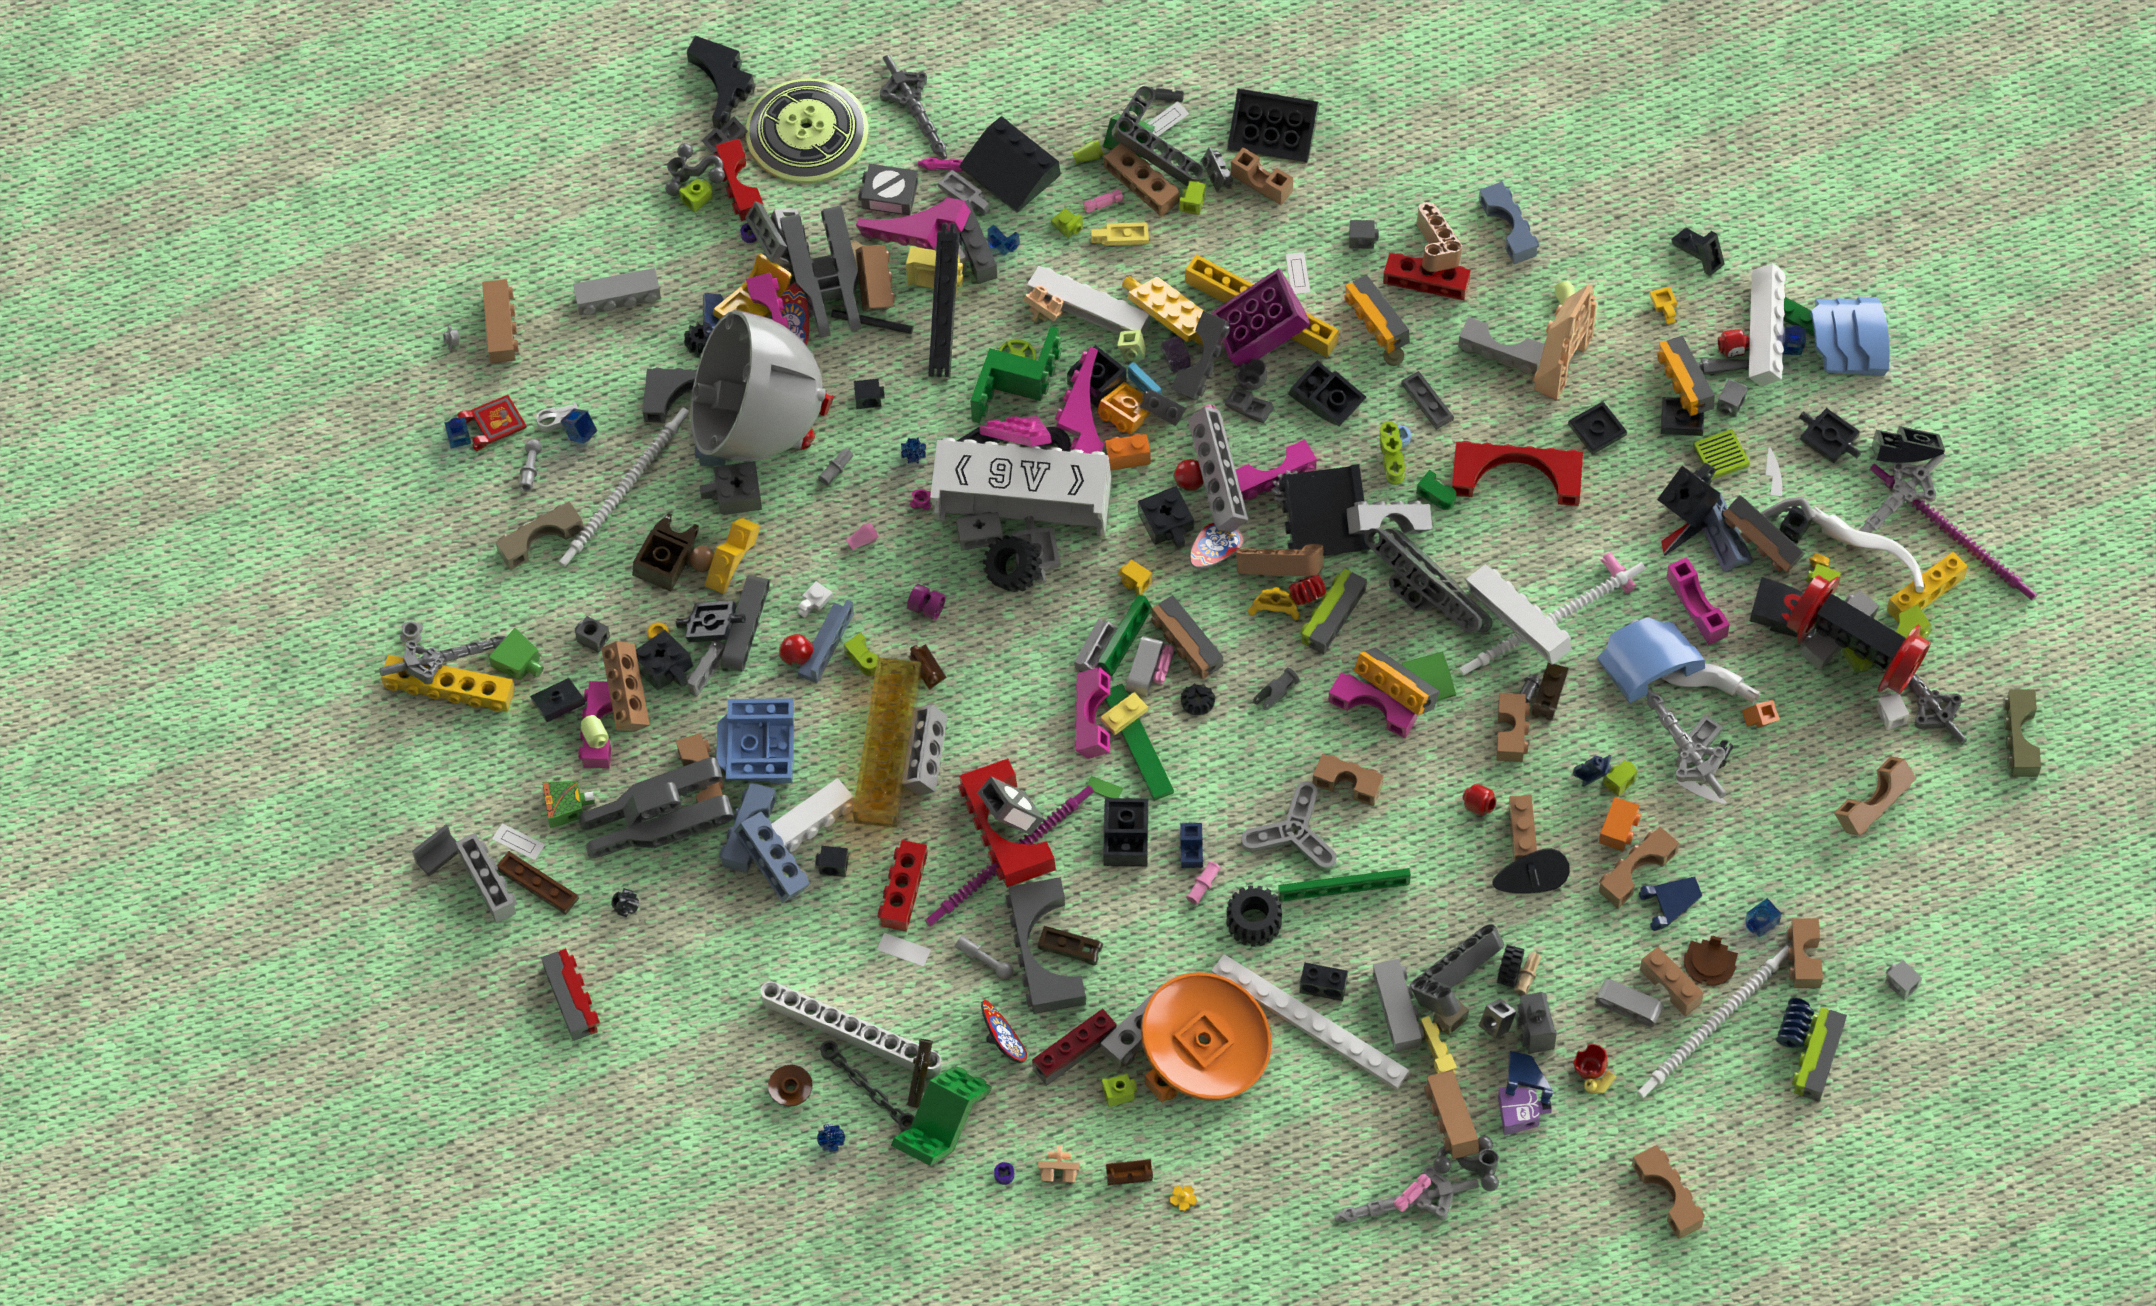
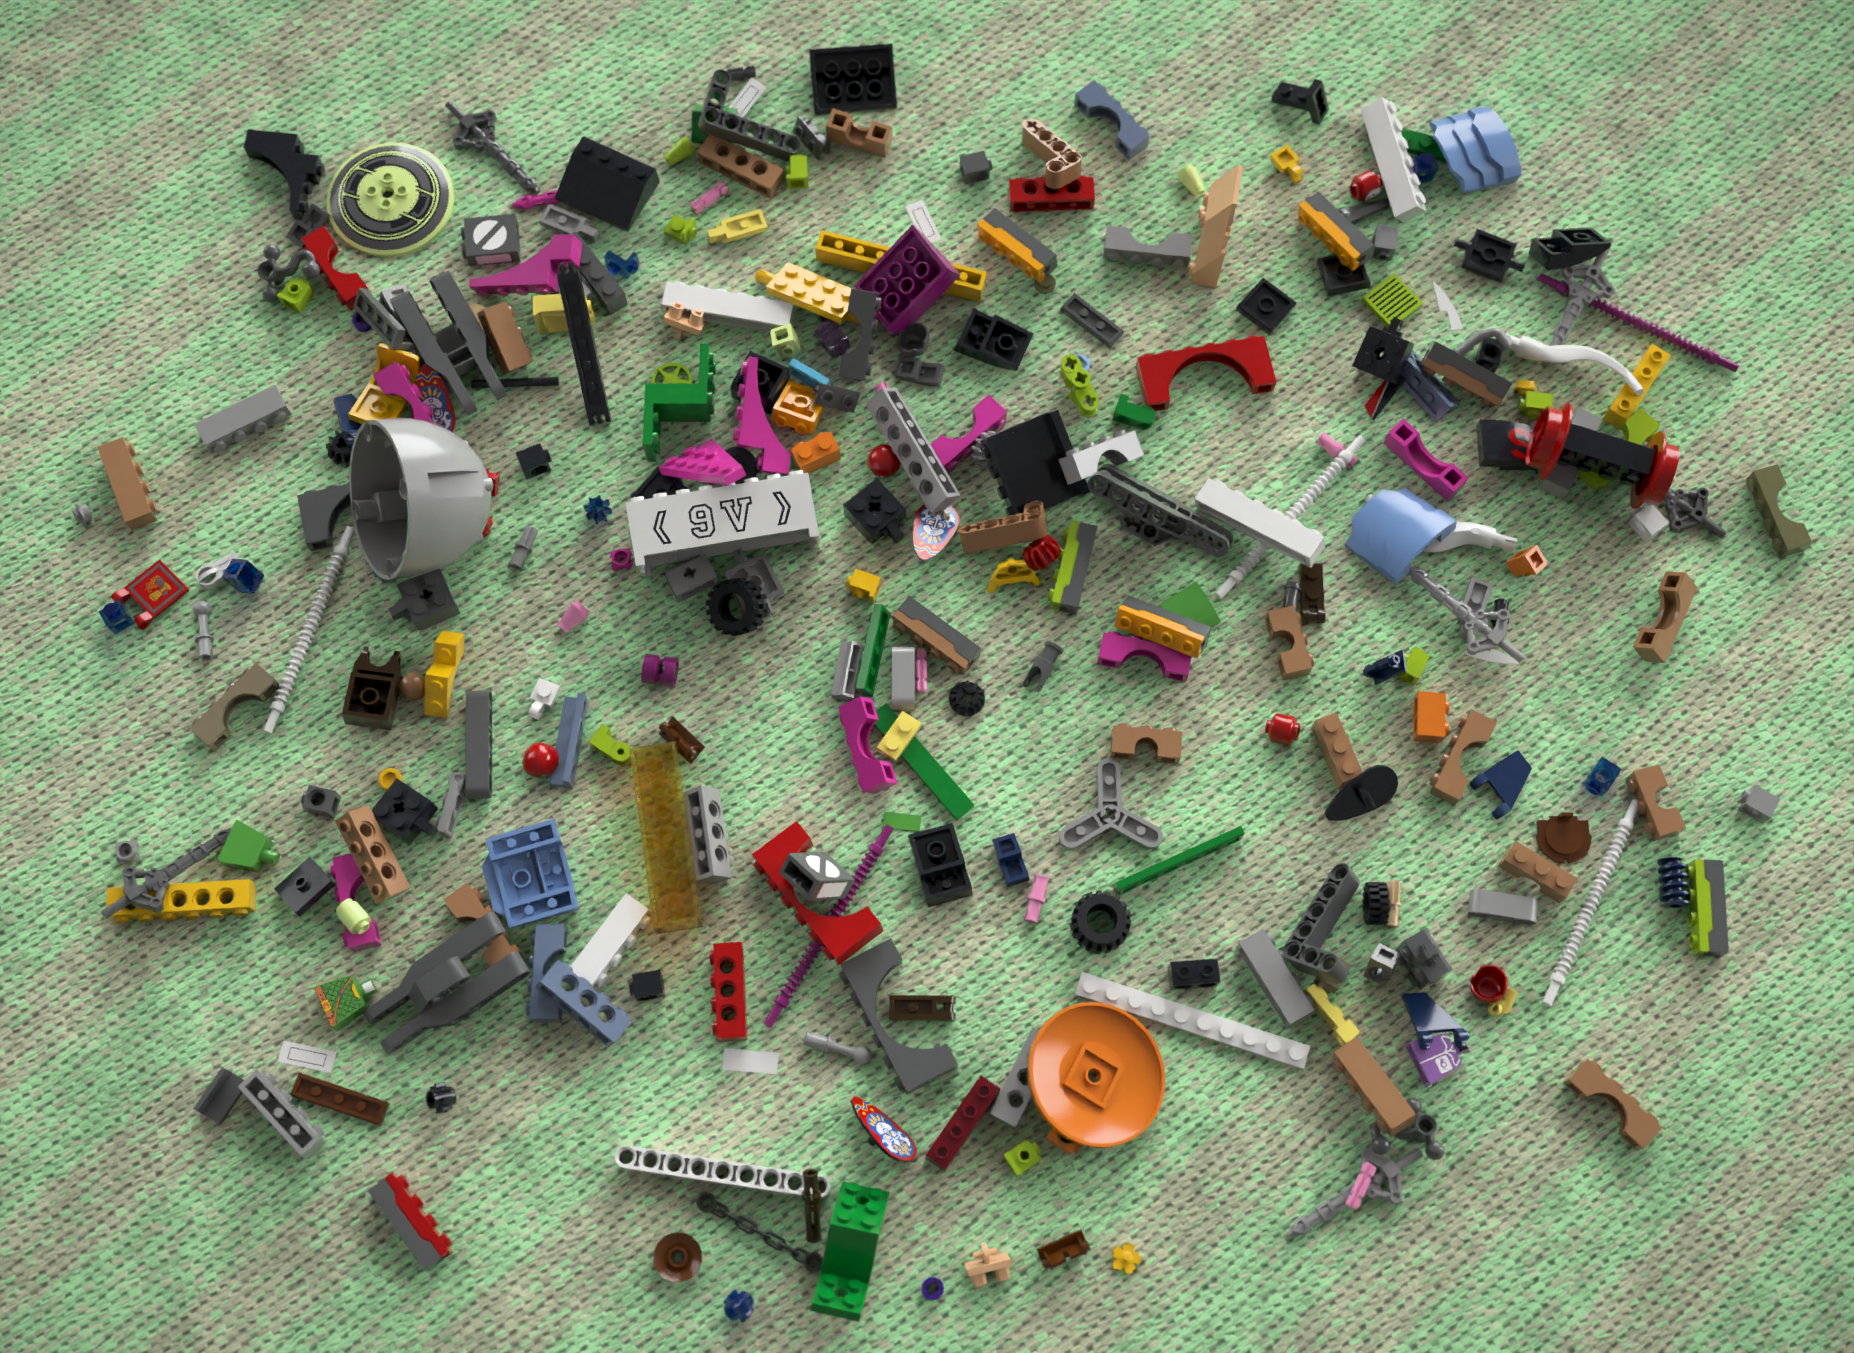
camera: 20 degrees left, 10 degrees up
(710, 621) = (442, 753): black plate -> none

